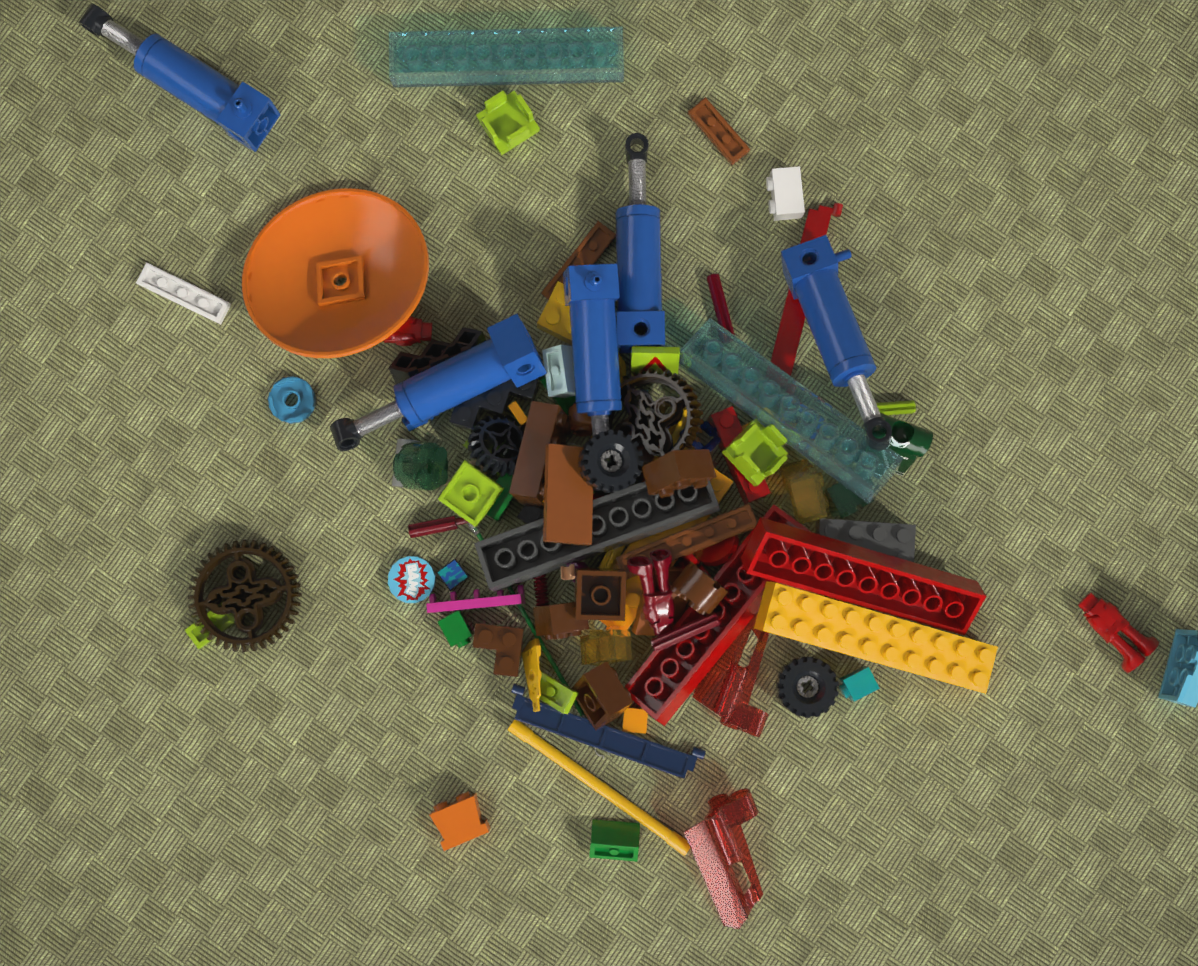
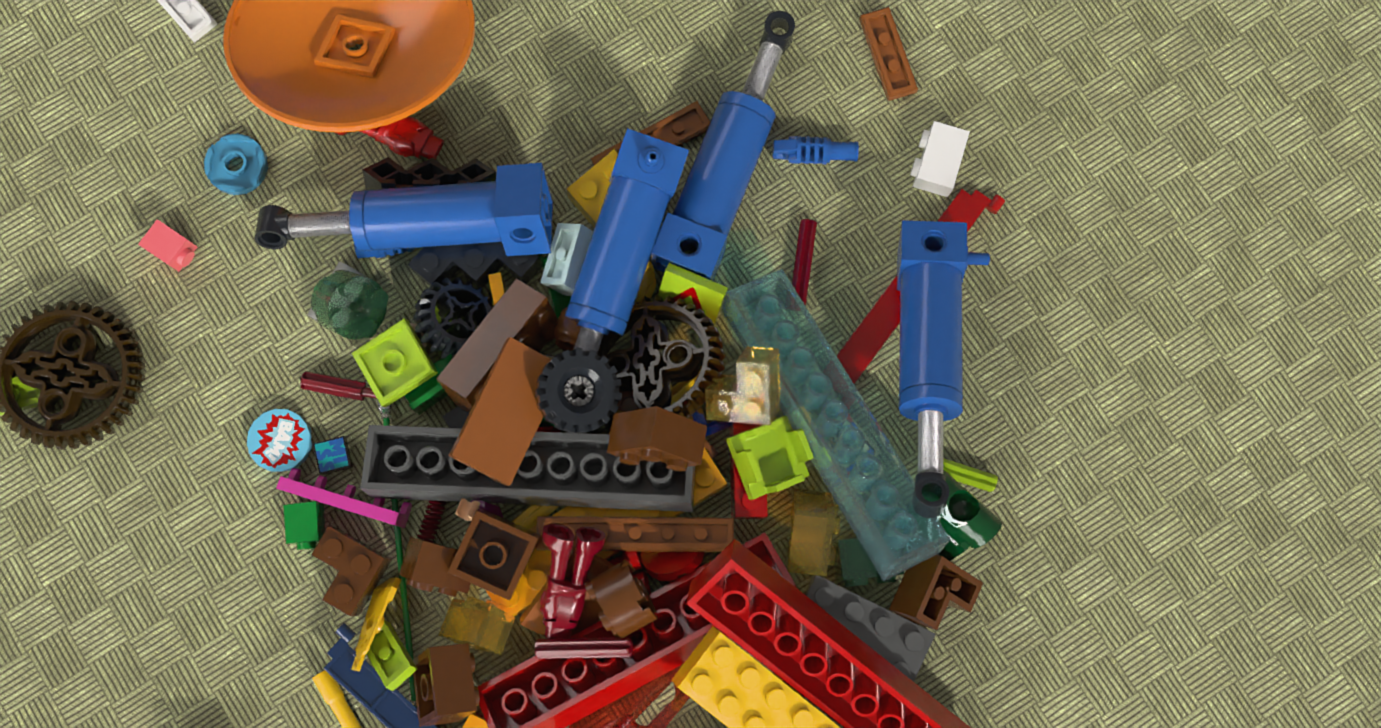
camera: 20 degrees right, 5 degrees down
(273, 477) = (168, 245): none -> coral brick
(695, 223) = (814, 150): none -> blue hinge
(728, 414) = (749, 395): none -> clear yellow brick
(900, 497) = (931, 588): none -> reddish brown brick

